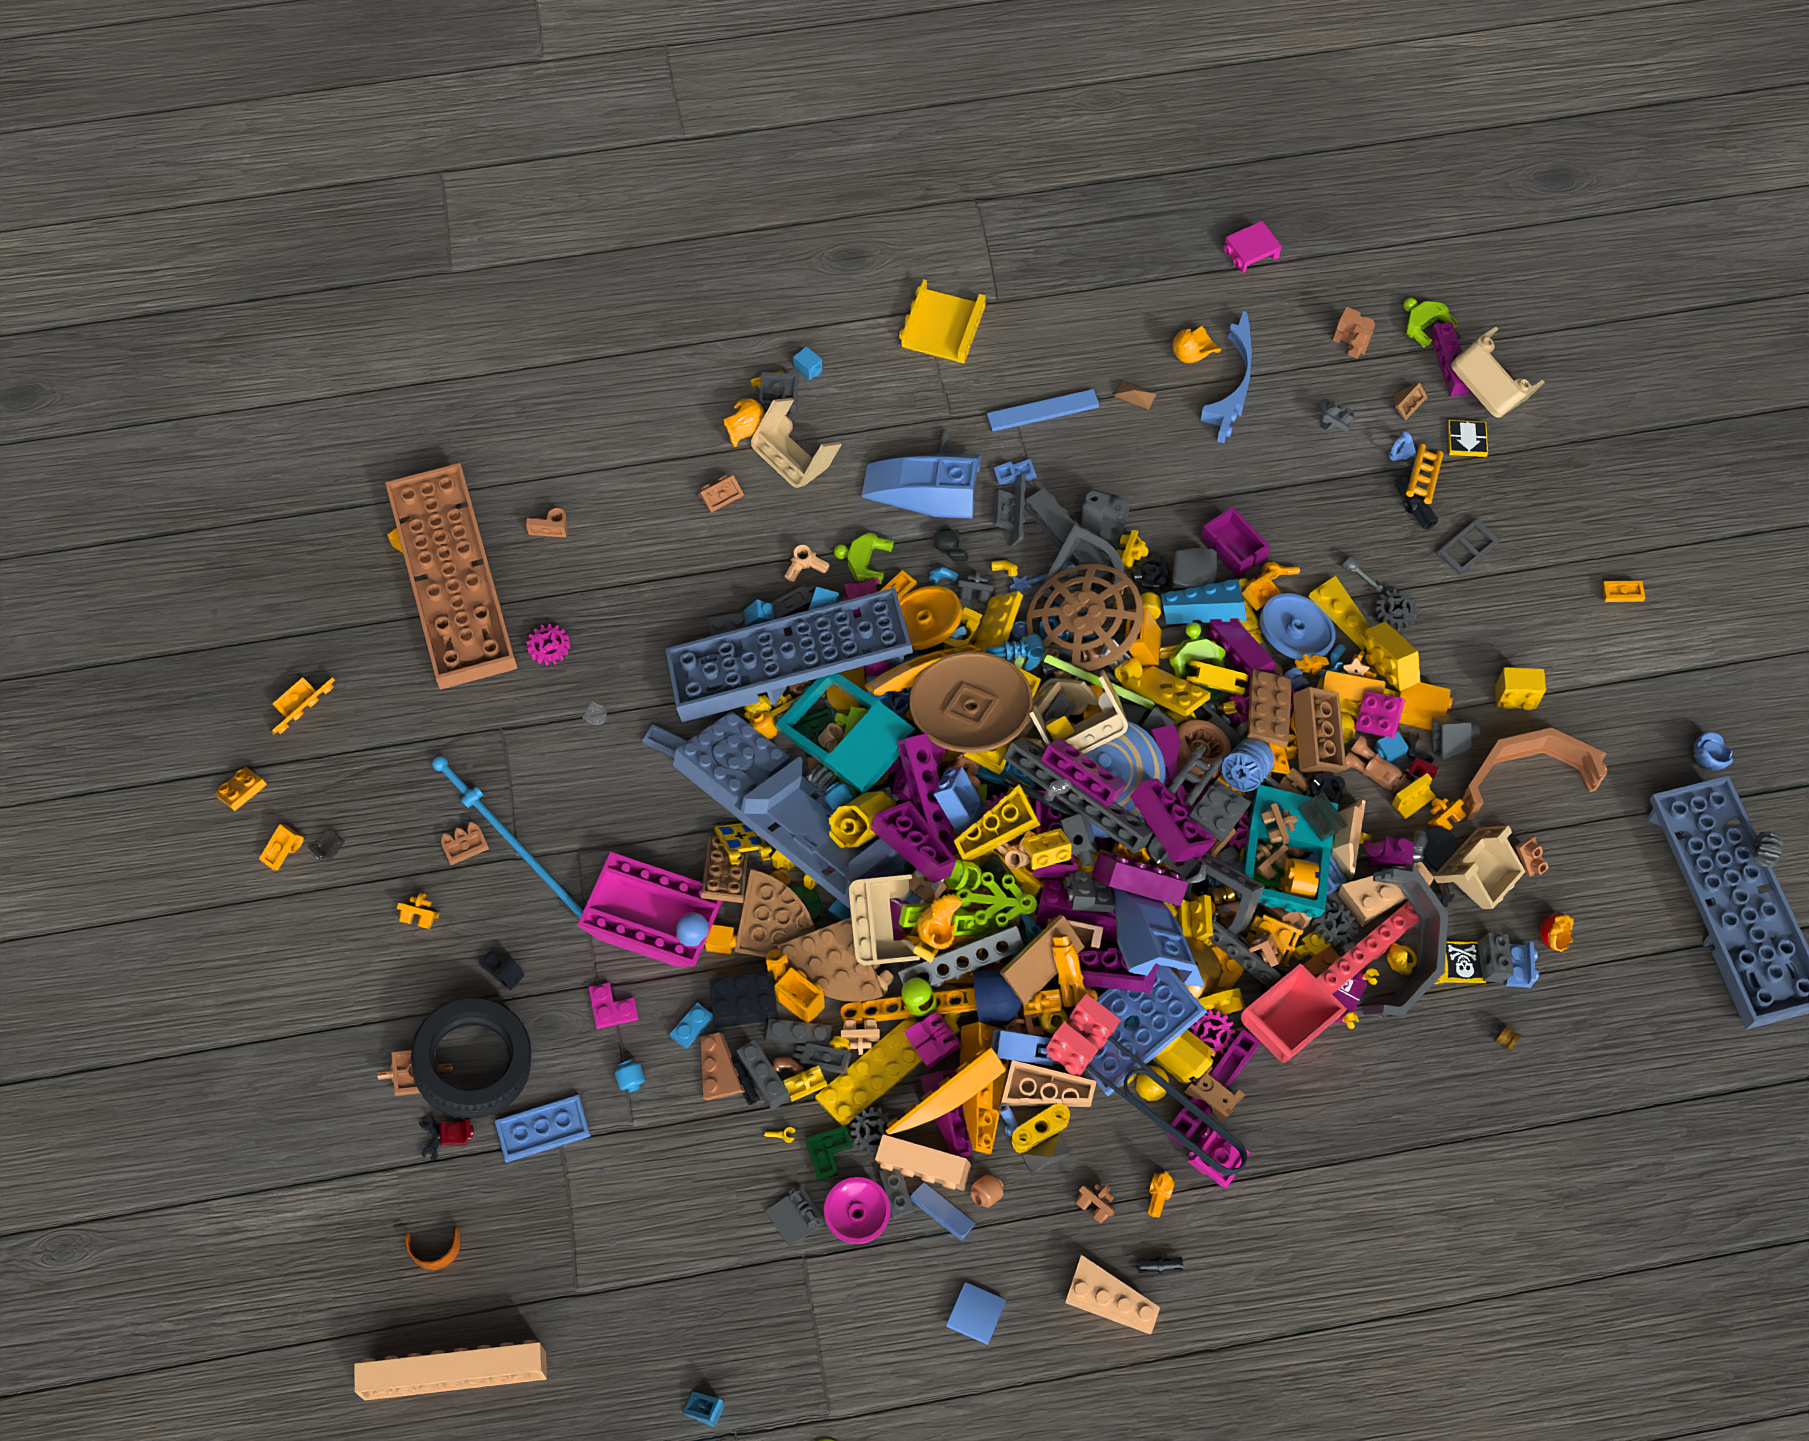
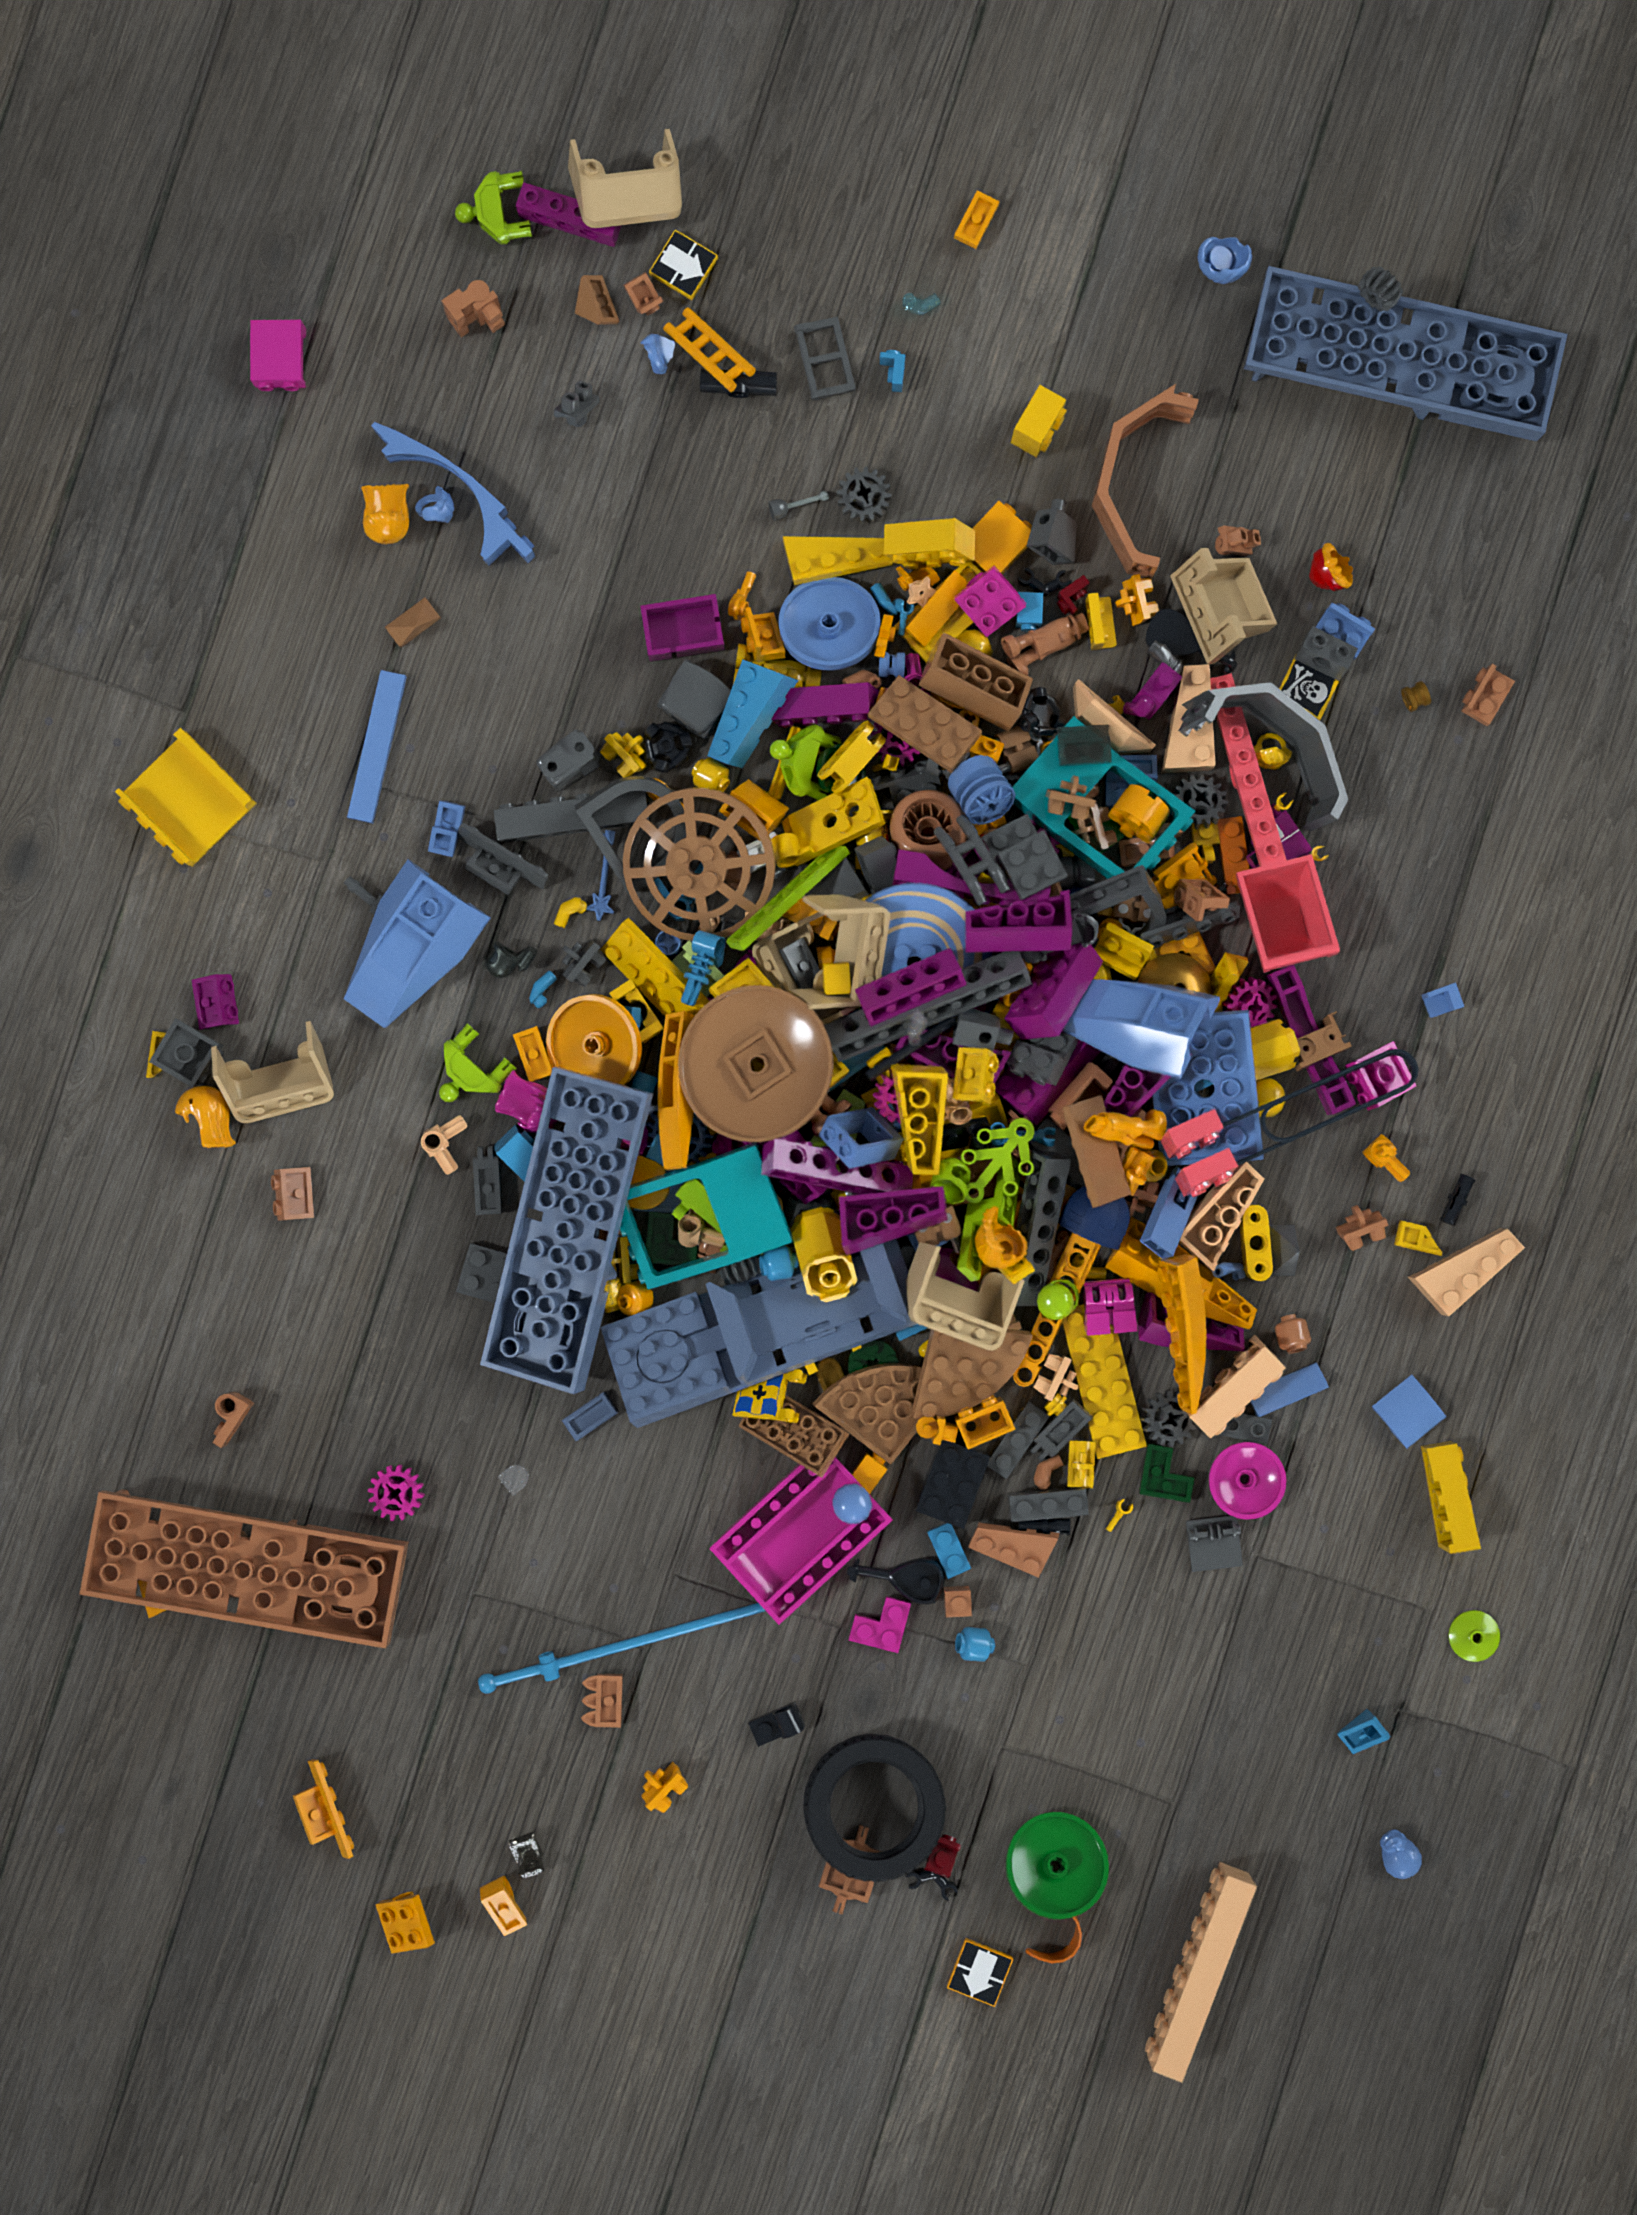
camera: 55 degrees left, 25 degrees up
(375, 1208) = (980, 1972): none -> tile
(488, 1199) = (1080, 1859): none -> green dish
(542, 1128) = (981, 1760): medium blue tile -> none
(656, 1047) = (957, 1601): none -> nougat brick
(657, 1014) = (915, 1579): none -> black piece
(758, 613) = (487, 1232): dark azure brick -> none
(808, 363) = (161, 995): dark azure brick -> none
(823, 395) = (215, 1001): none -> magenta bracket
(927, 1377) = (1450, 1498): none -> yellow wedge
(1112, 1250) = (1416, 1238): none -> yellow tile
(1217, 373) = (441, 511): none -> medium blue piece
(1302, 1173) = (1442, 1000): none -> medium blue panel
(1432, 422) = (643, 294): none -> nougat bracket
(1492, 589) = (895, 373): none -> dark azure bracket
(1542, 585) = (920, 306): none -> clear light blue arm
(1544, 1090) = (1487, 695): none -> nougat bracket

